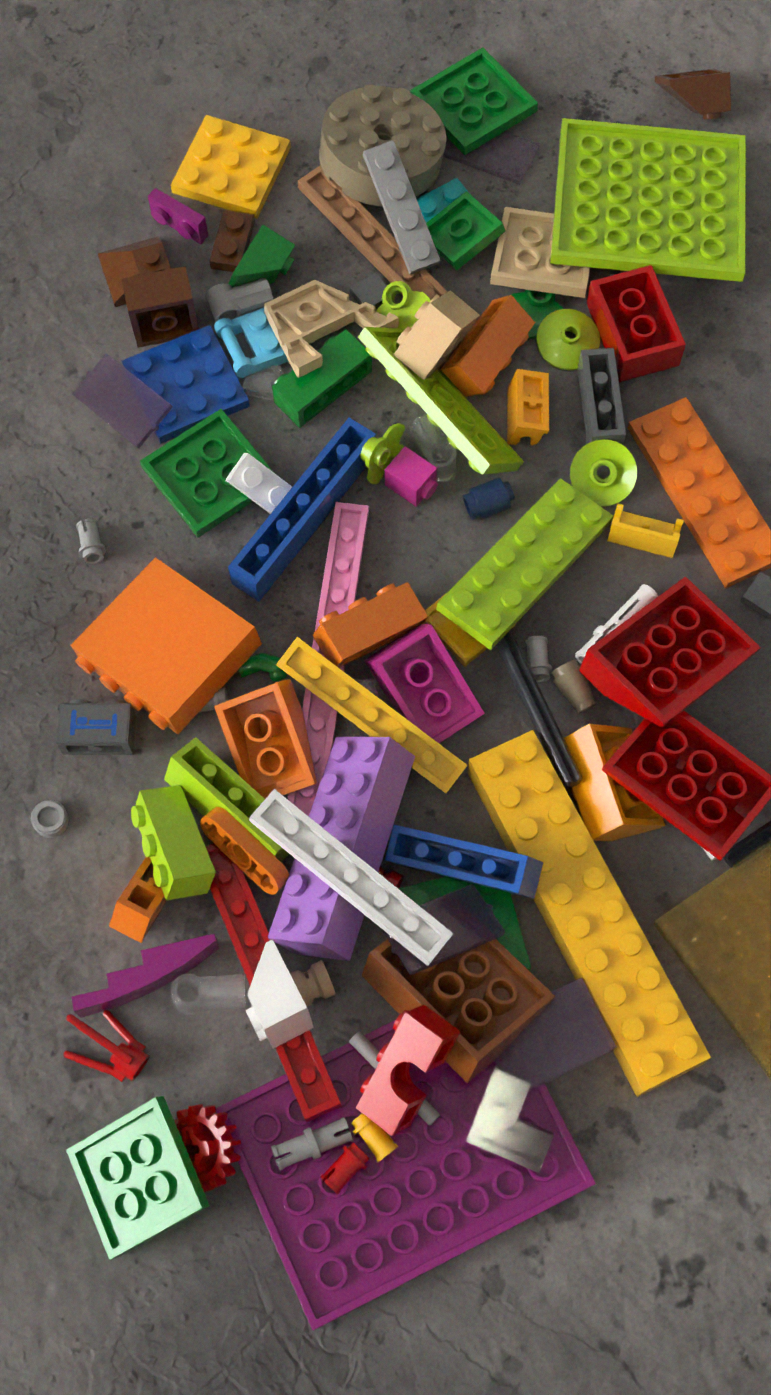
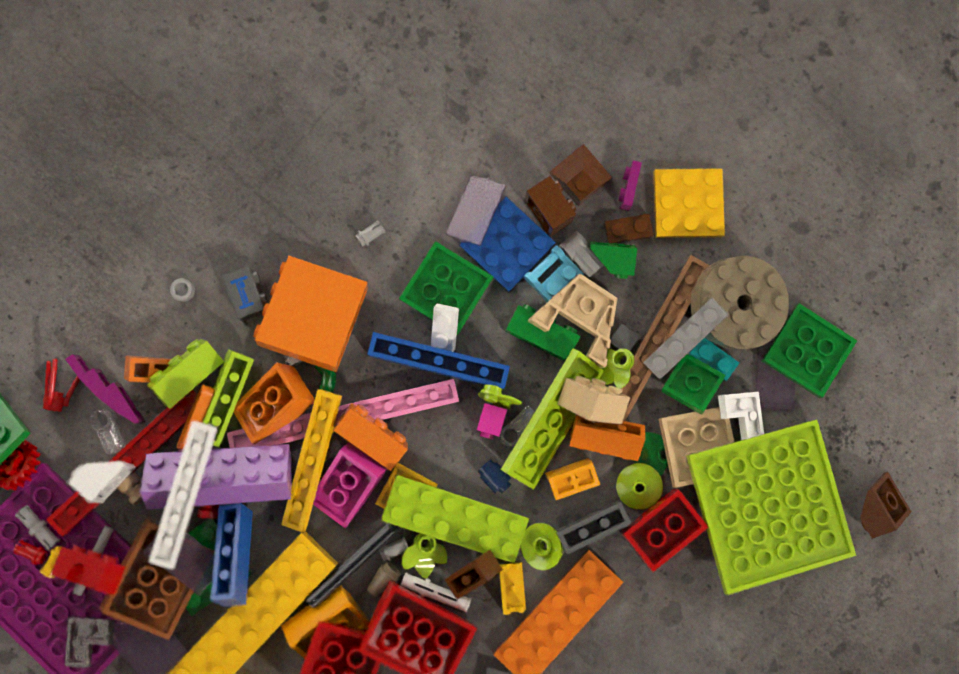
camera: 60 degrees right, 15 degrees up
(514, 188) = (747, 409): none -> white plate
(559, 622) = (424, 557): none -> lime plate
(610, 559) = (473, 574): none -> reddish brown brick

